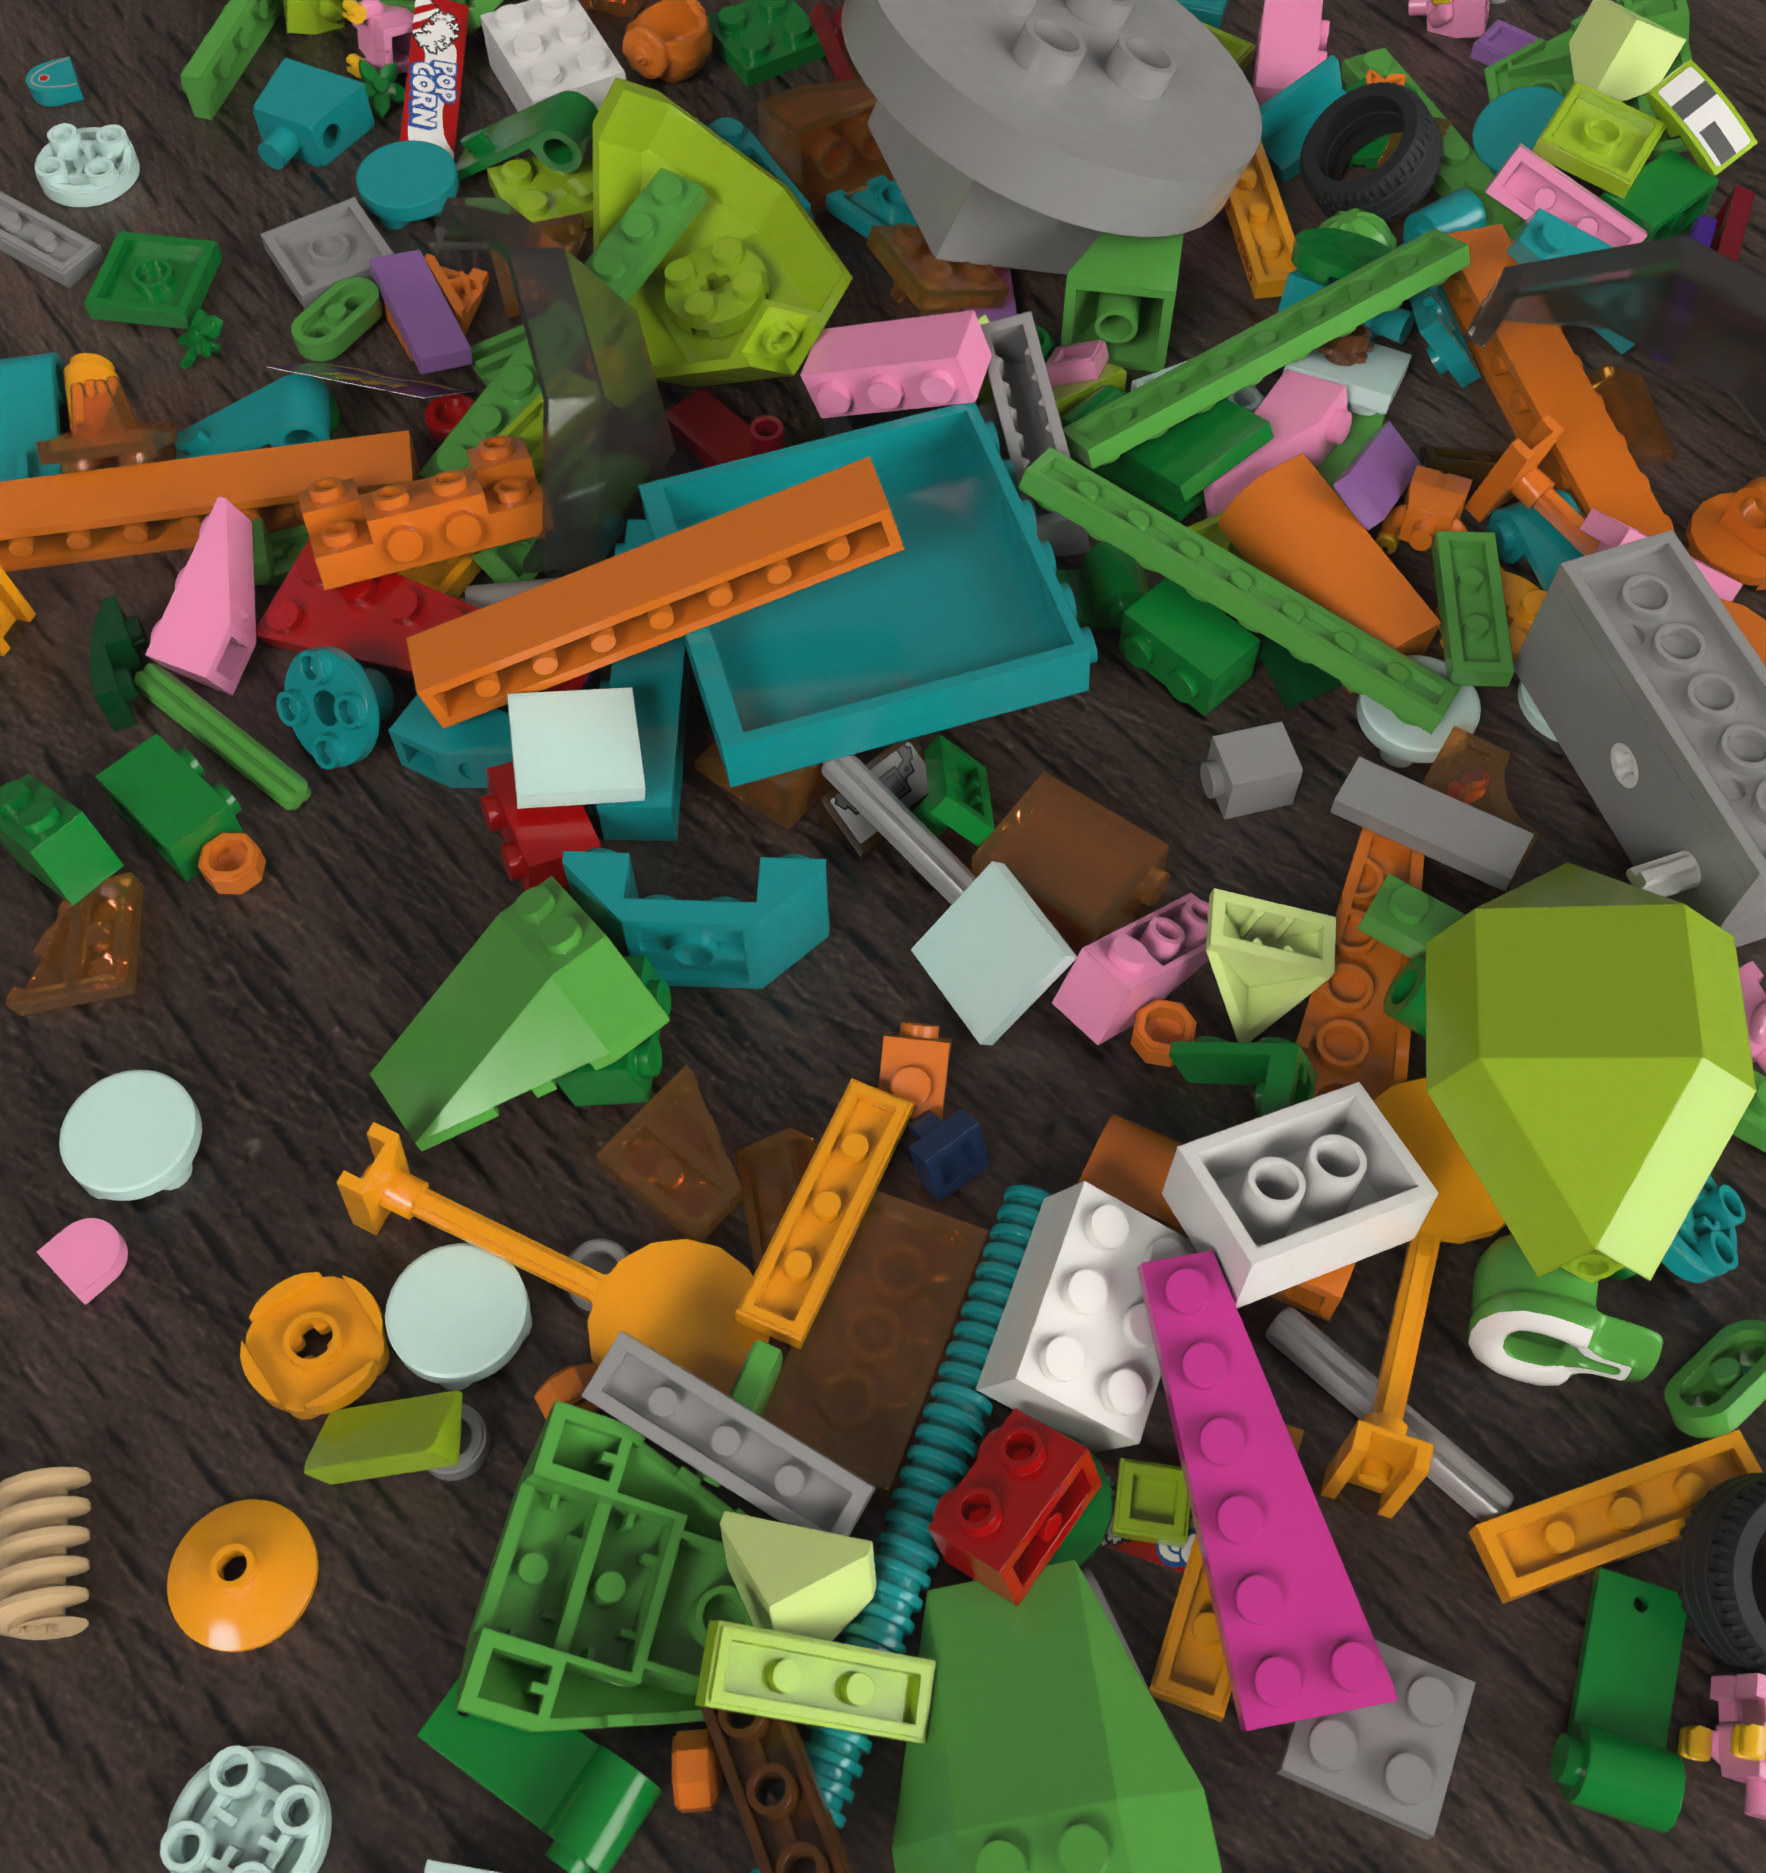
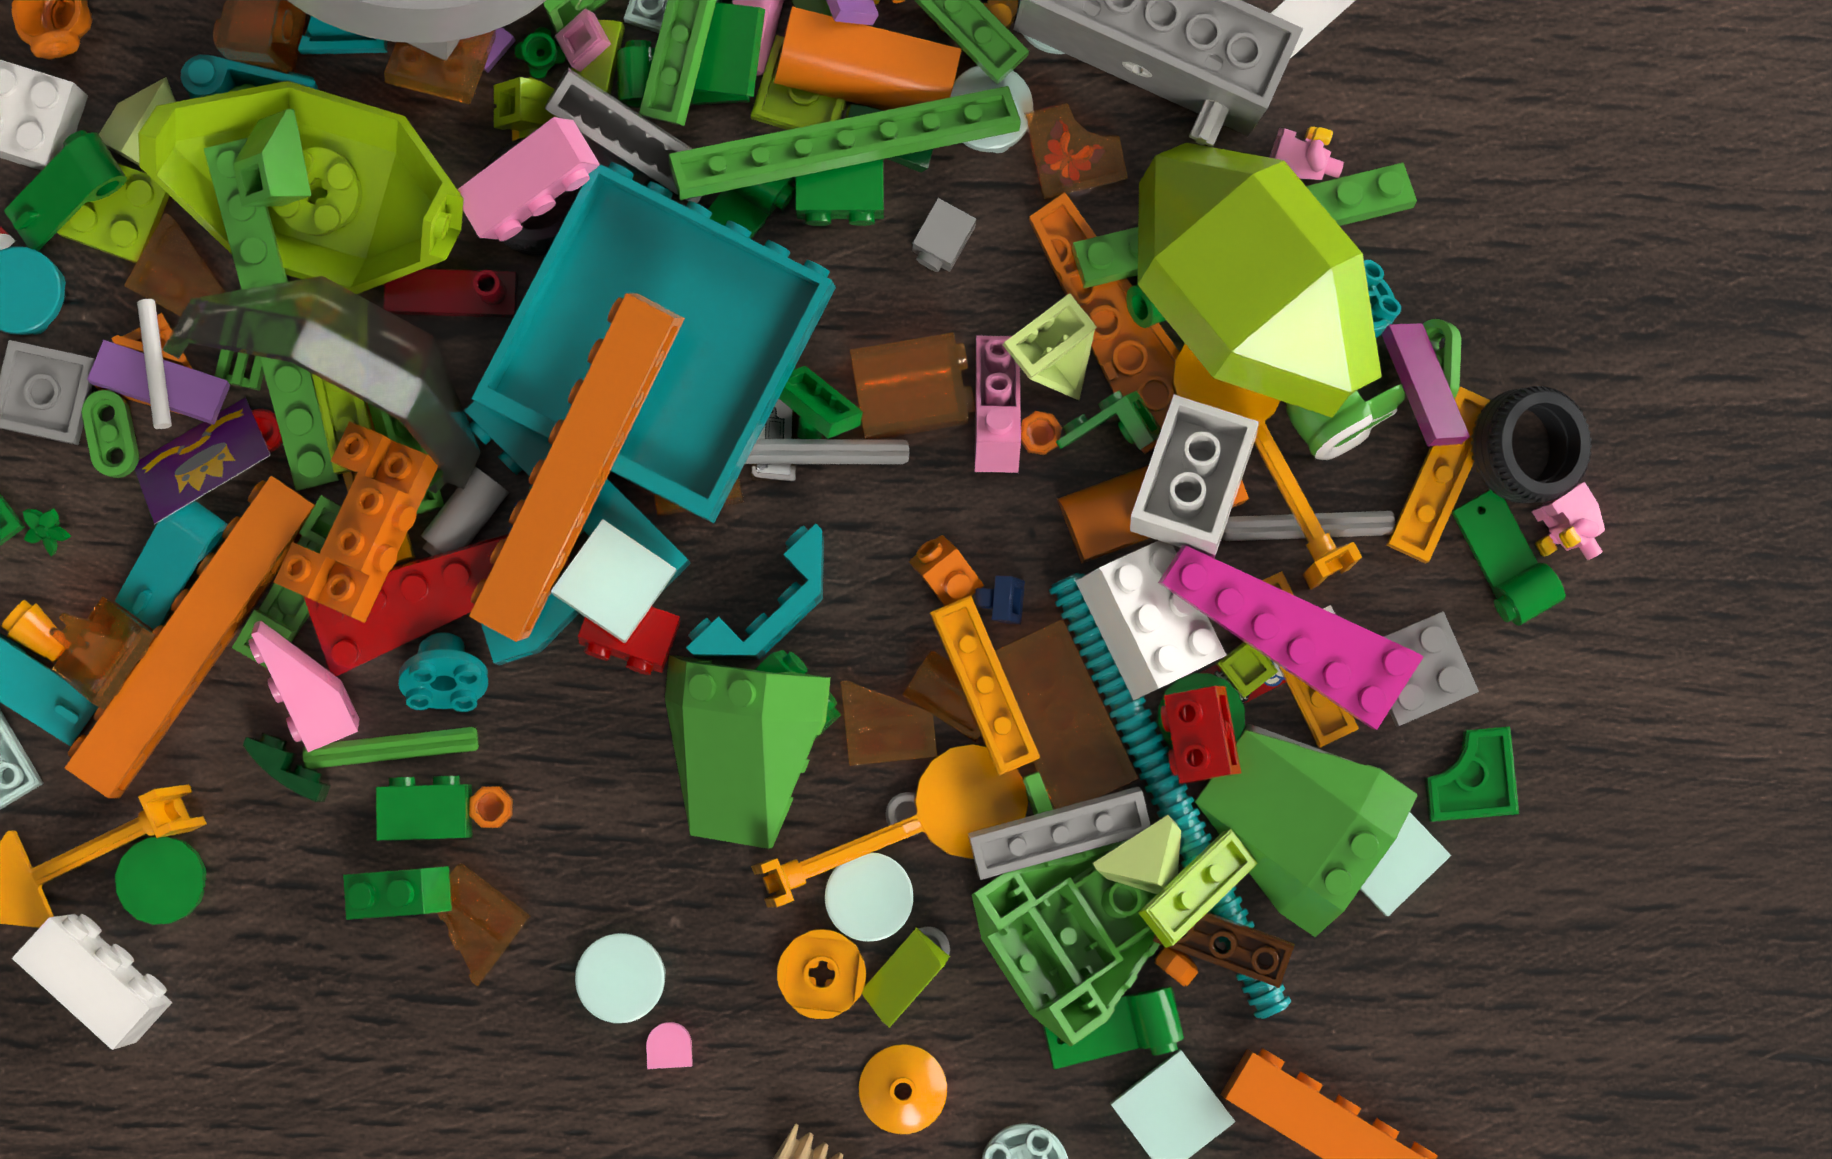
camera: 55 degrees left, 25 degrees up
(428, 289) = (154, 364): none -> white bar
(567, 1387) = (959, 878): orange tile -> none
(696, 214) = (272, 163): none -> bright green slope
(993, 953) = (926, 477): light aqua tile -> none
(1432, 823) = (1064, 186): light grey tile -> none
(1694, 1375) = (1425, 384): none -> magenta tile

